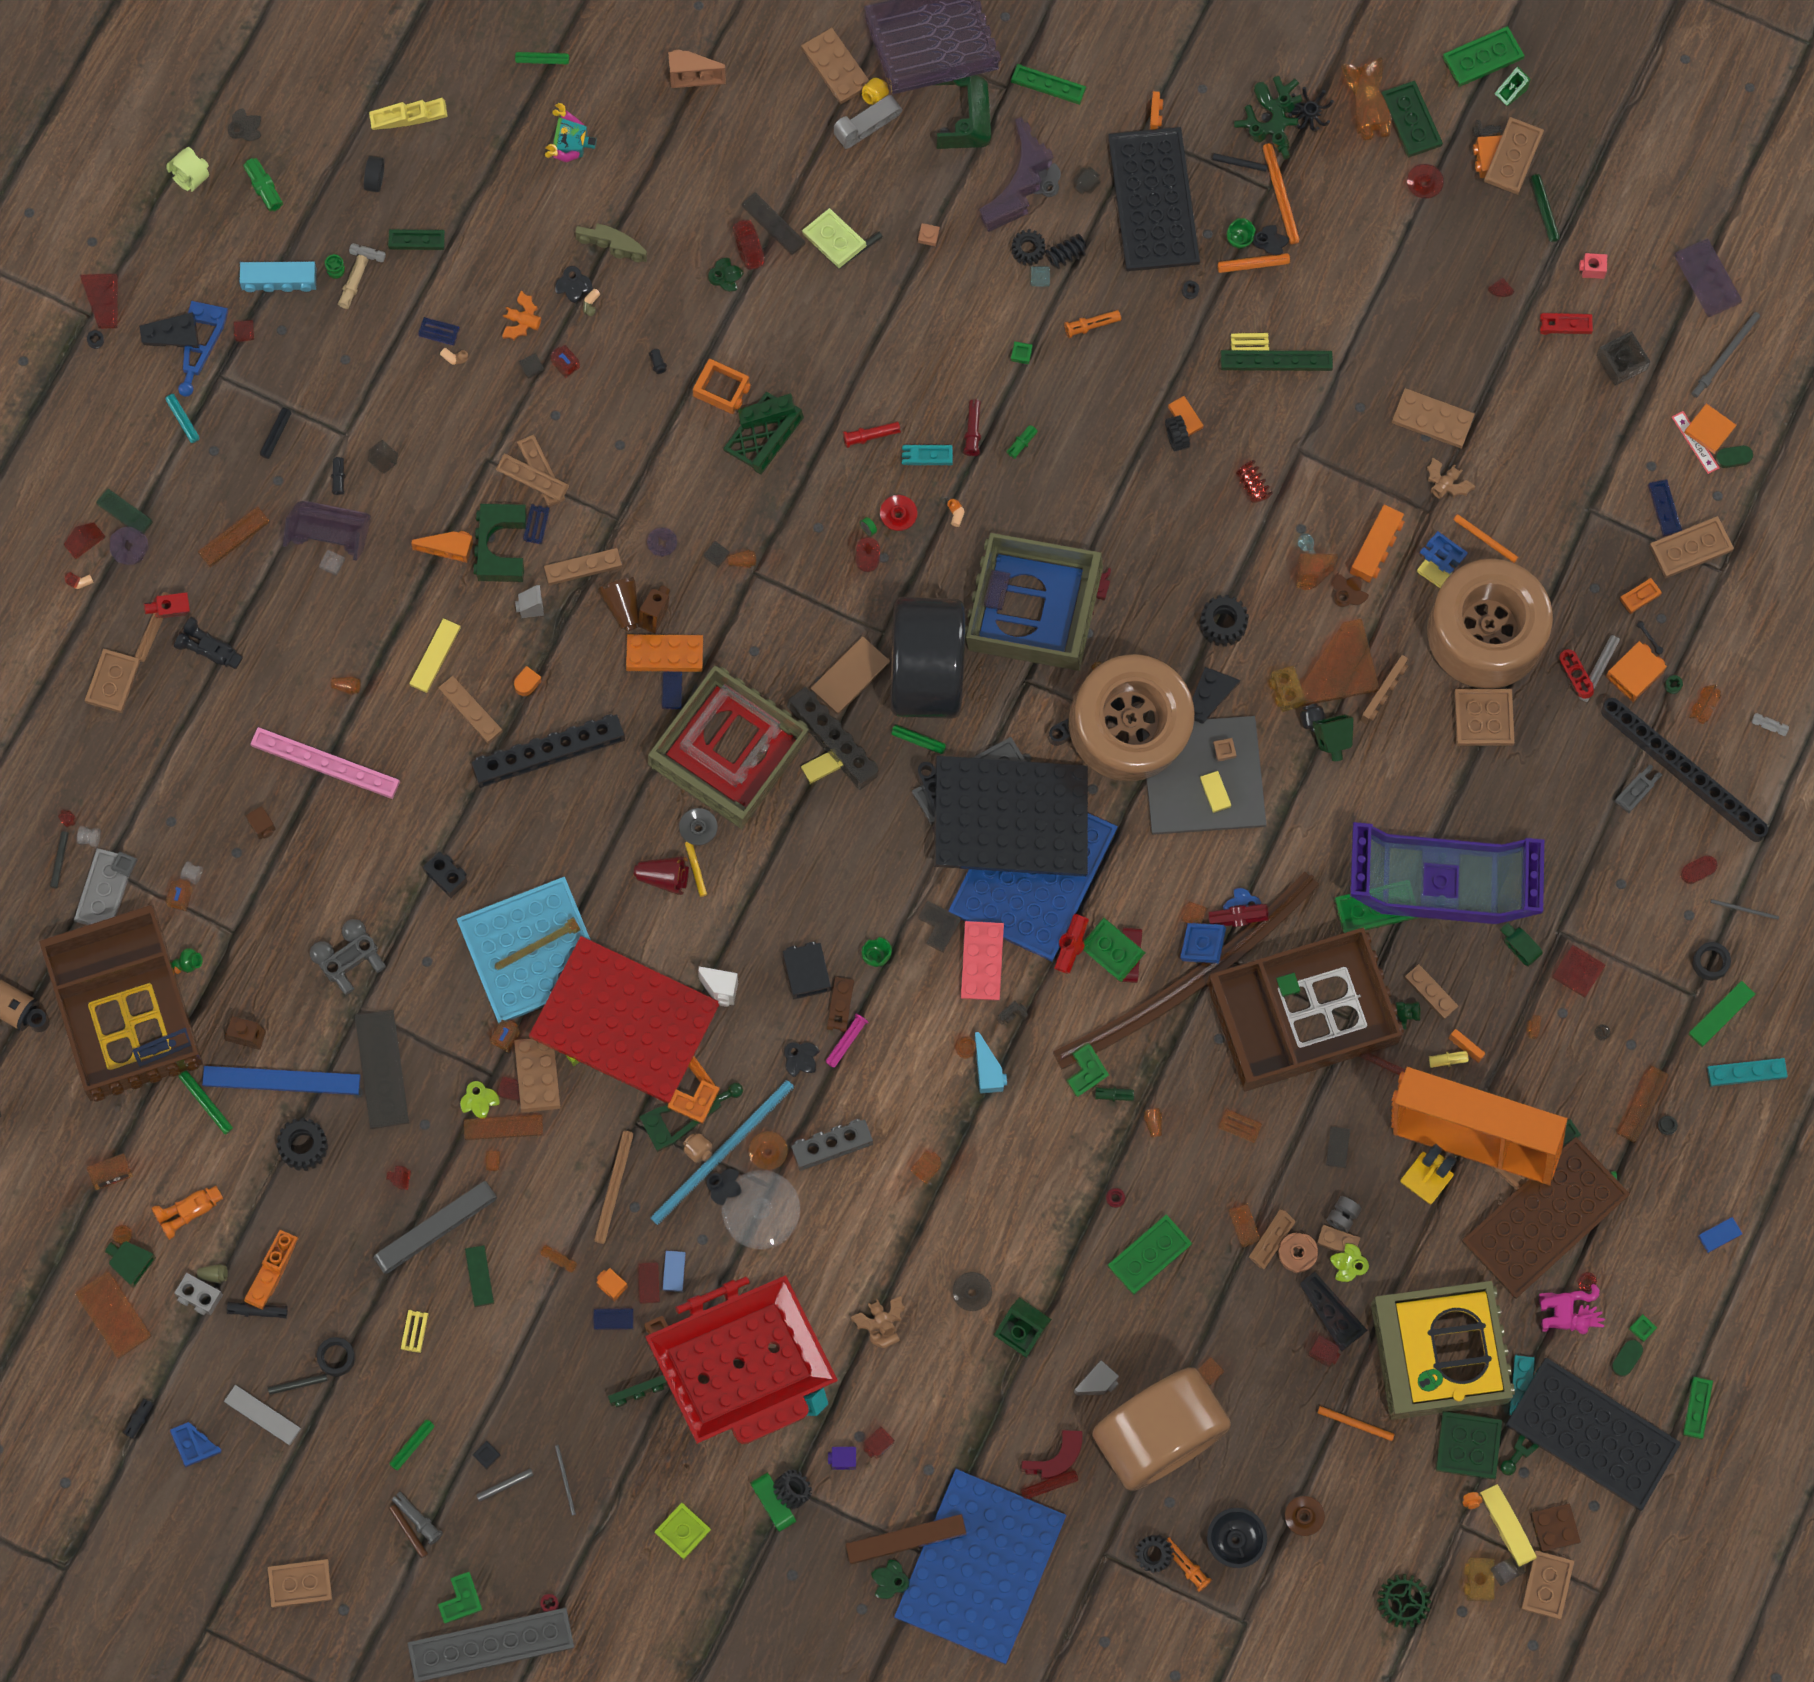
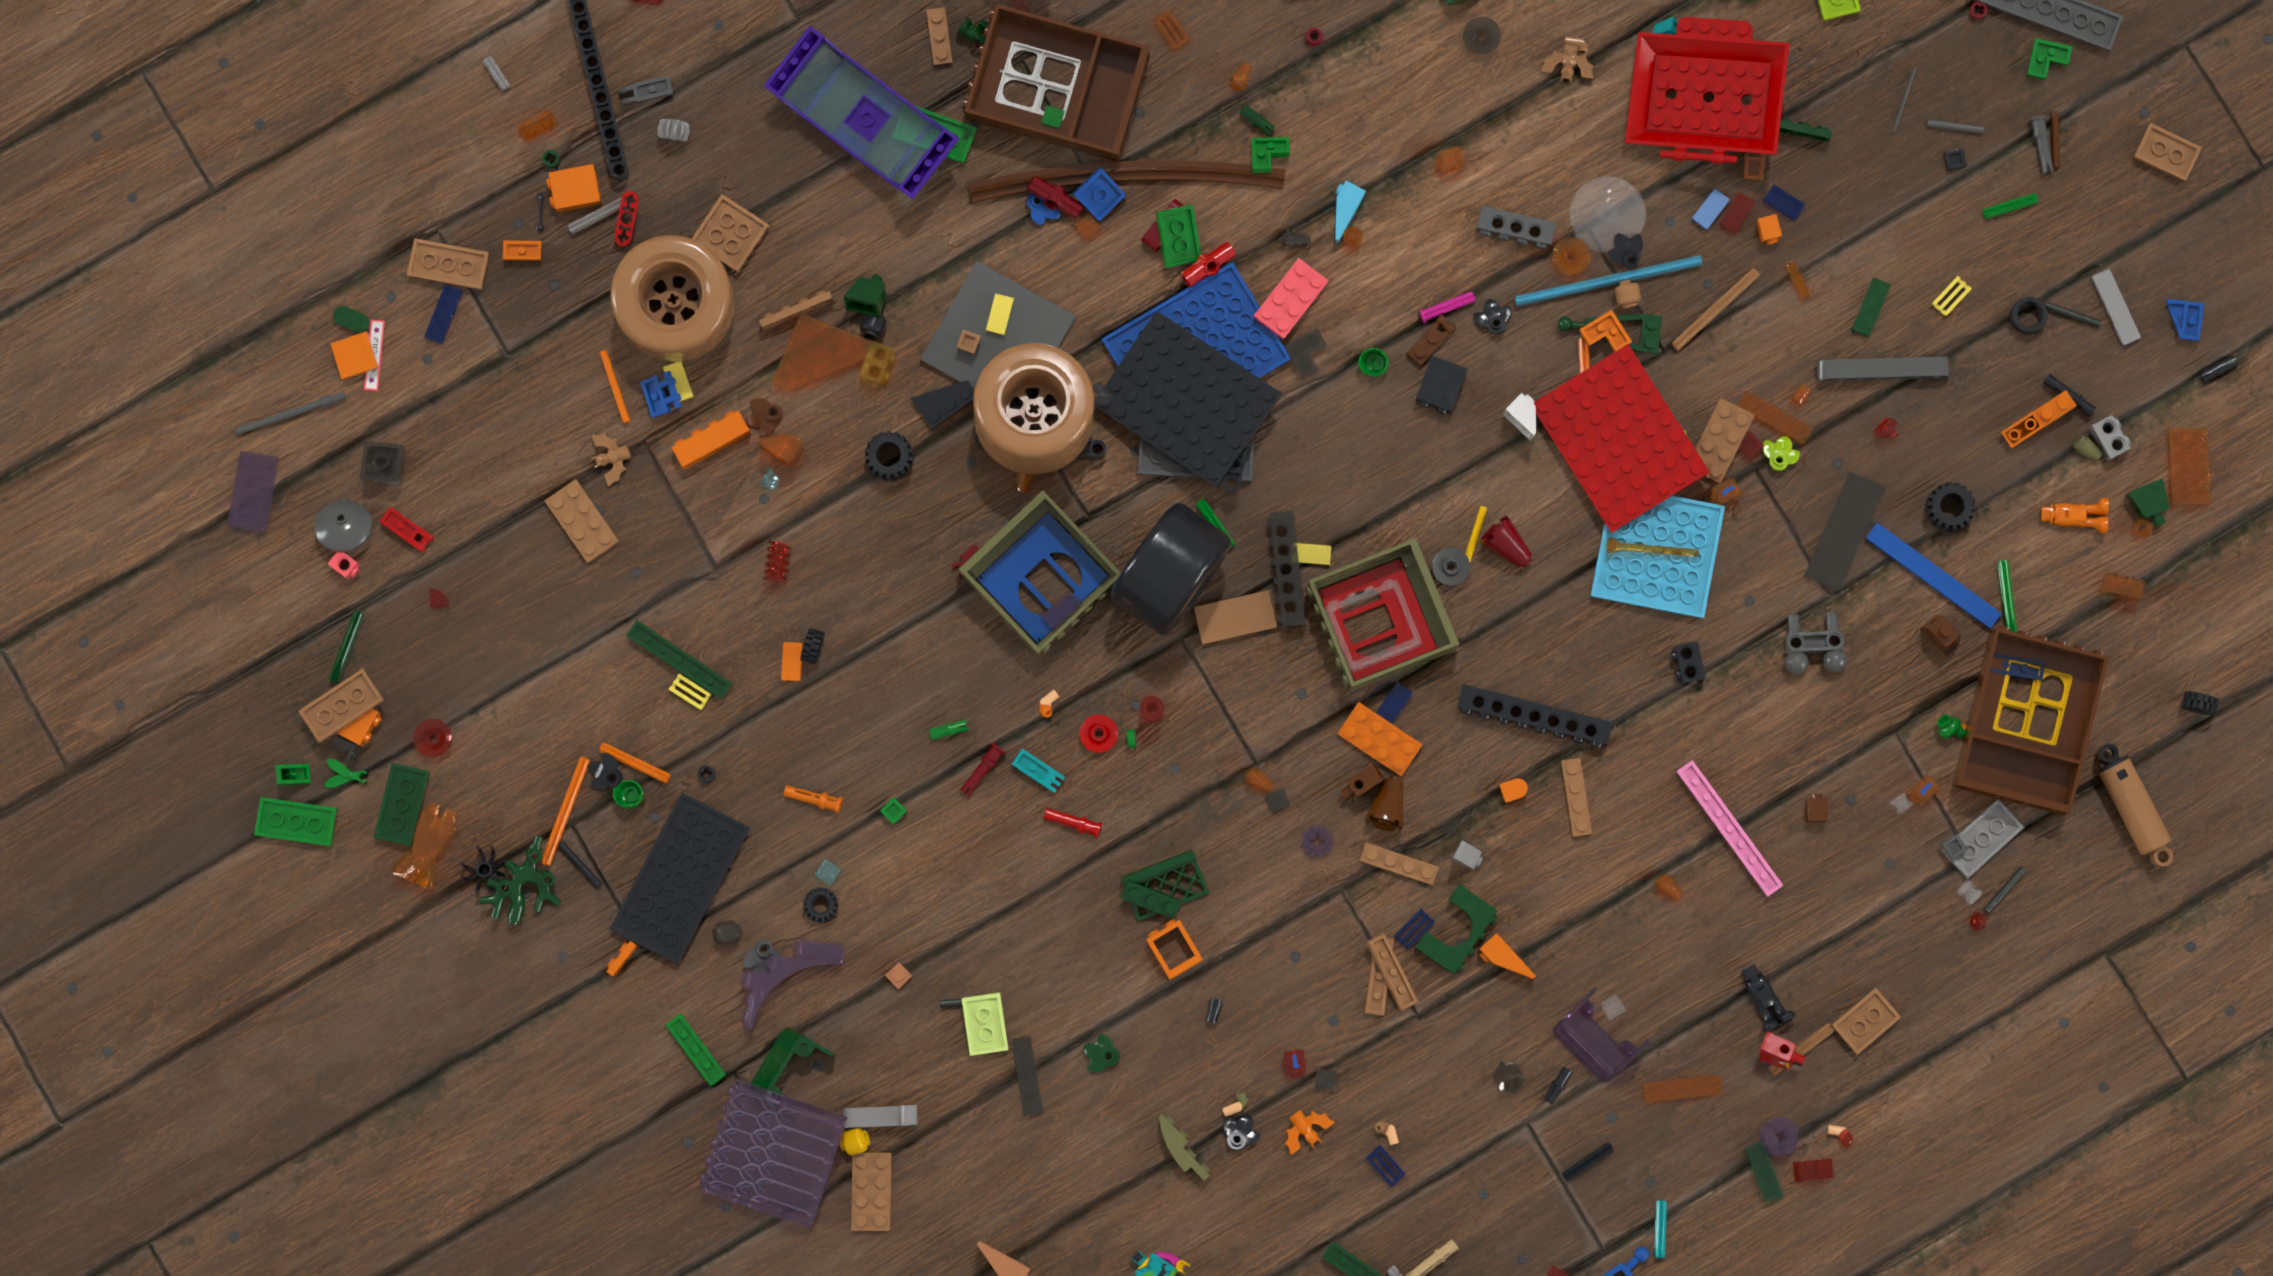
camera: 140 degrees left, 10 degrees up
(435, 655) = (1576, 865): light yellow tile -> none
(748, 244) = (1065, 1062): clear red gear -> none
(1066, 250) = (791, 877): black piece -> none
(1472, 114) = (345, 774): none -> green piece
(1521, 944) = (838, 25): dark green piece -> none
(1592, 767) = (673, 130): none -> light grey gear
(1607, 295) = (345, 534): none -> dark grey dish

